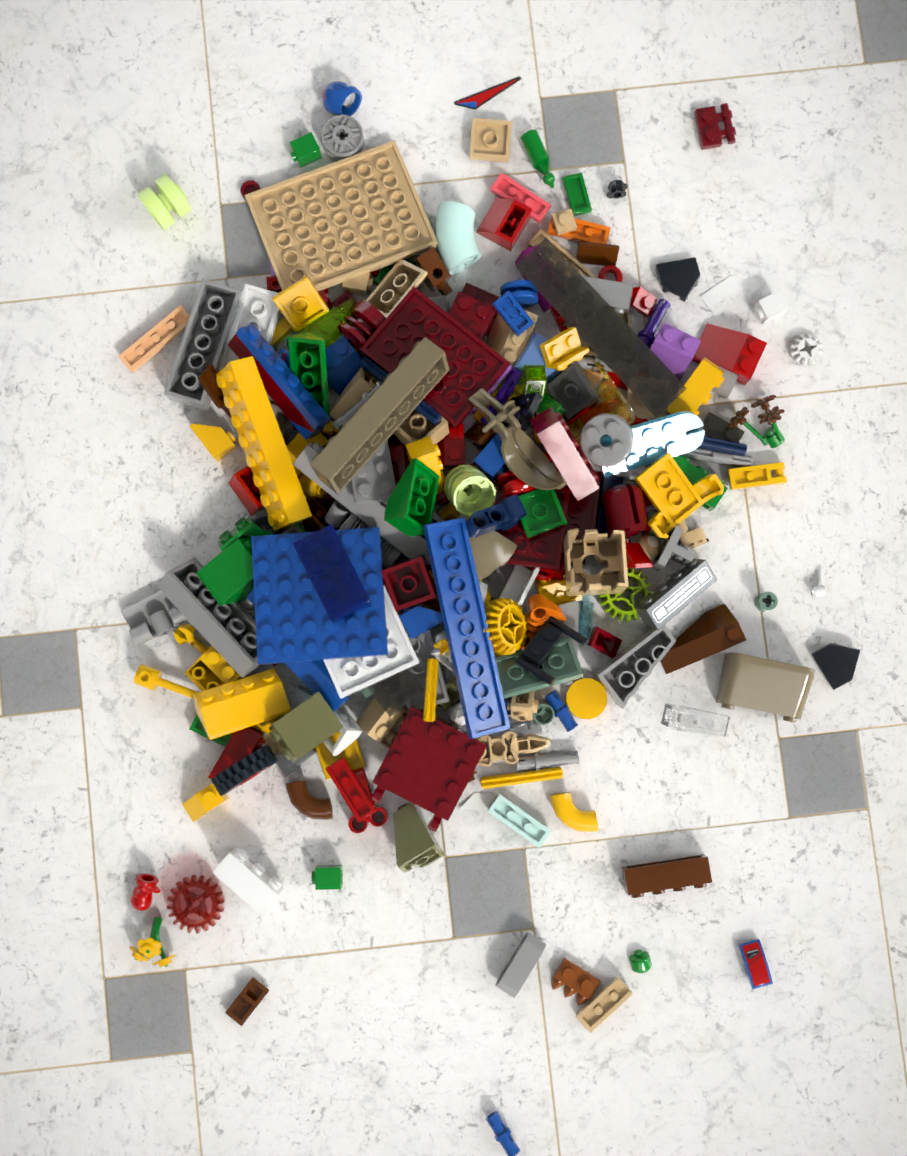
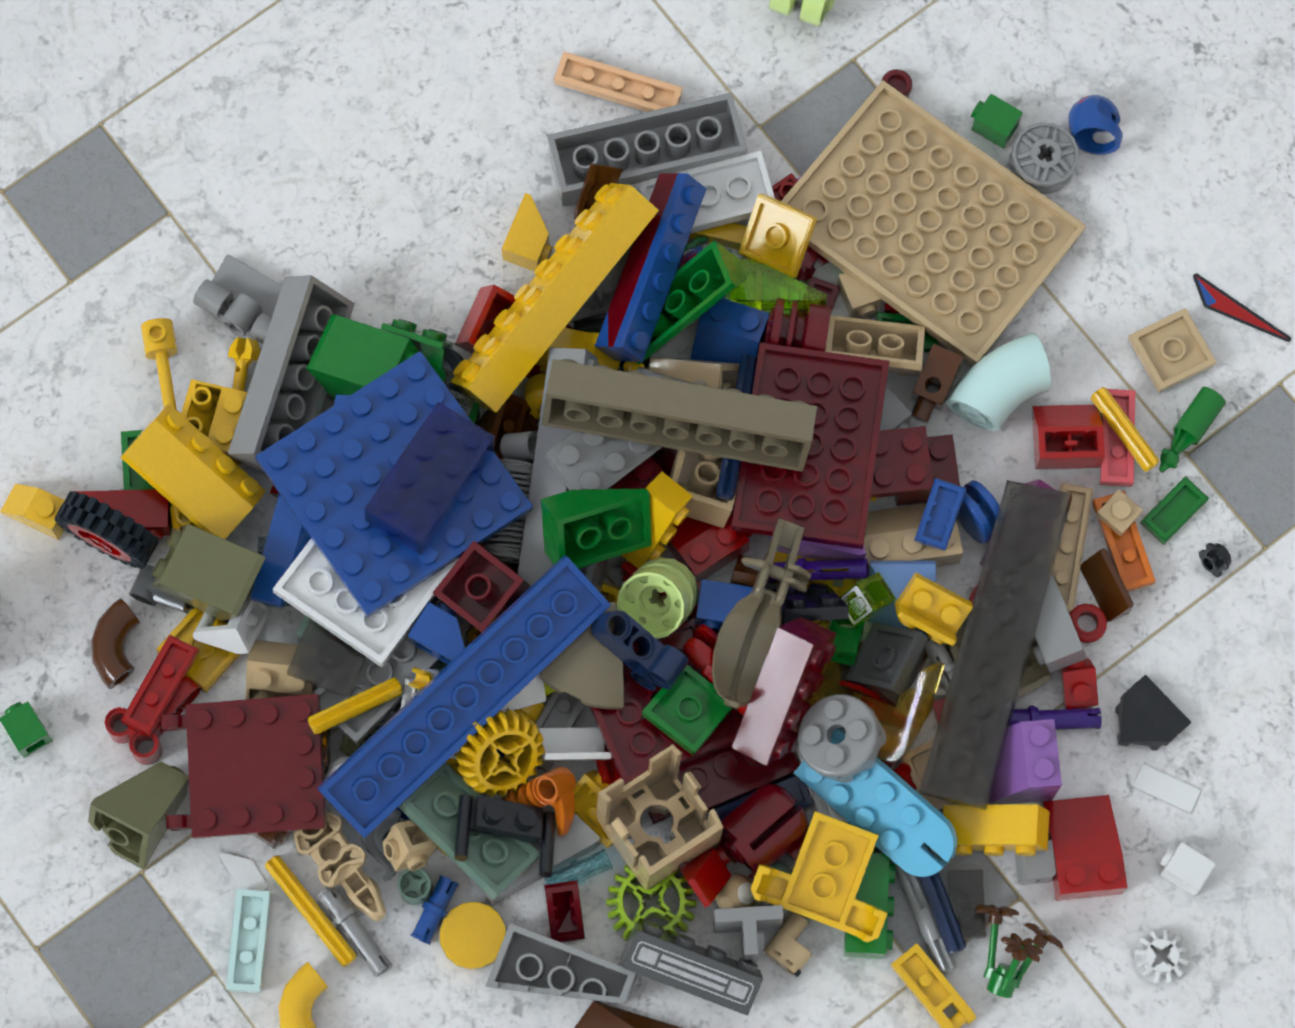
camera: 60 degrees right, 10 degrees down
(520, 190) = (1125, 429): none -> yellow axle

